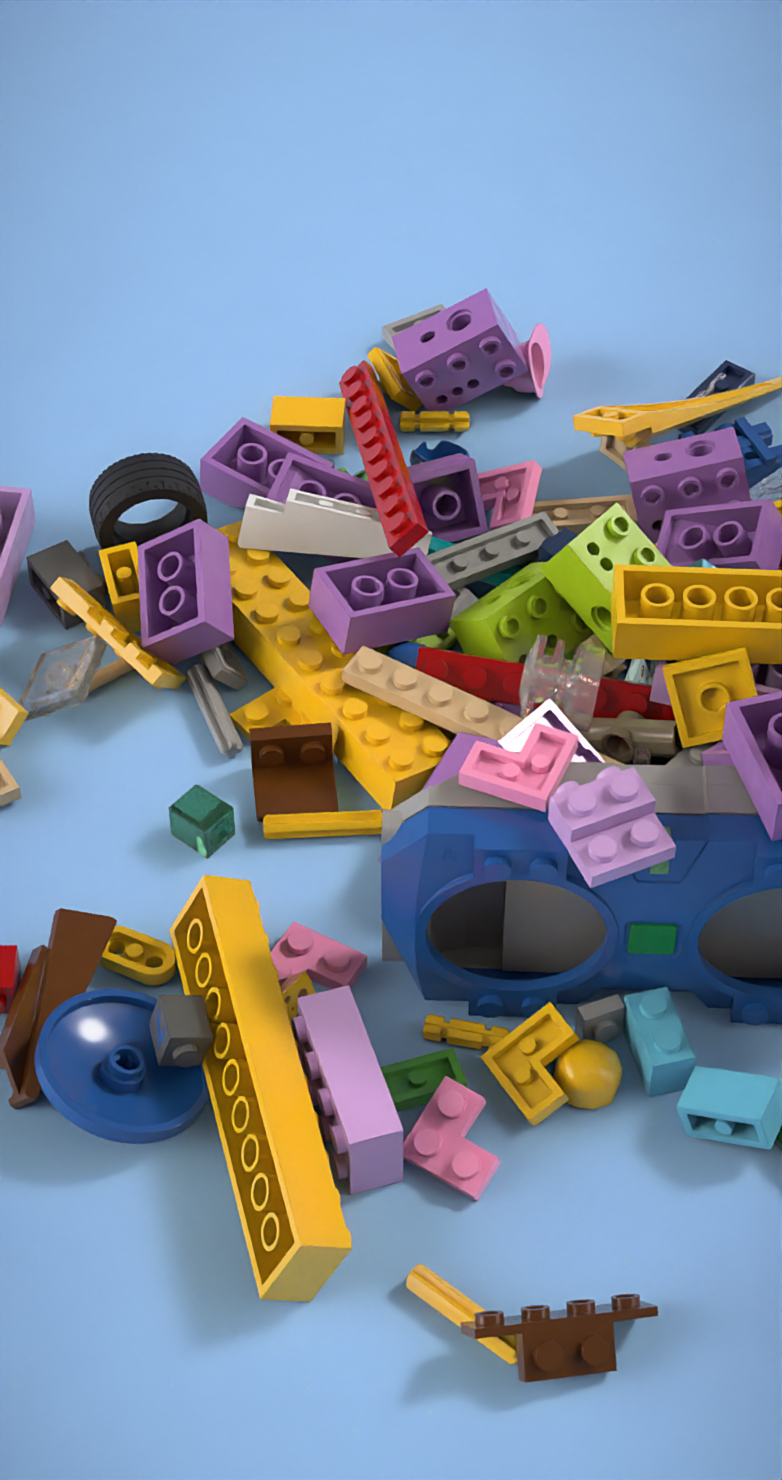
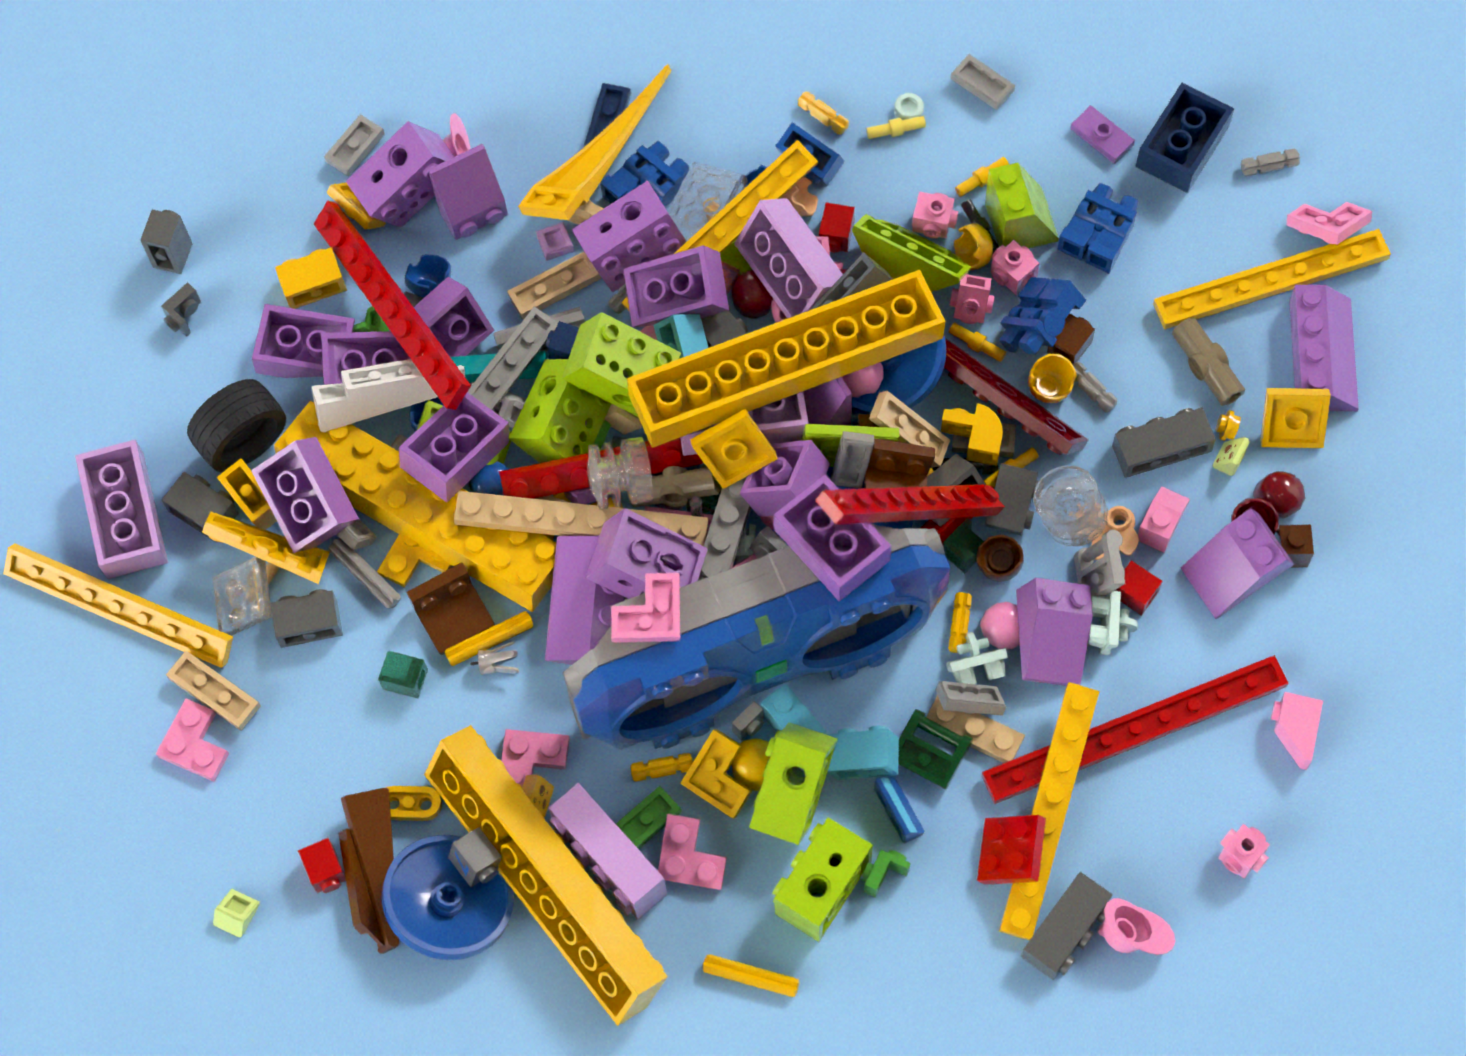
camera: 20 degrees left, 20 degrees up
(122, 728) = (306, 618): none -> dark grey brick
(153, 404) = (179, 306): none -> dark grey bracket
(170, 339) = (166, 241): none -> dark grey brick
(321, 847) = (487, 658): none -> flat silver piece
(434, 421) = (404, 233): yellow axle -> none
(510, 492) = (499, 287): bright pink plate -> none
(522, 390) = (468, 192): none -> medium lavender slope
(564, 1340) = (820, 969): reddish brown bracket -> none
(600, 480) = (554, 241): none -> lavender tile
(610, 825) = (729, 635): lavender plate -> none
(614, 1225) = (827, 867): none -> lime piece
(624, 1092) = (789, 794): none -> lime piece
(693, 1254) = (875, 873): none -> bright green bracket
(753, 1194) = (898, 808): none -> blue slope

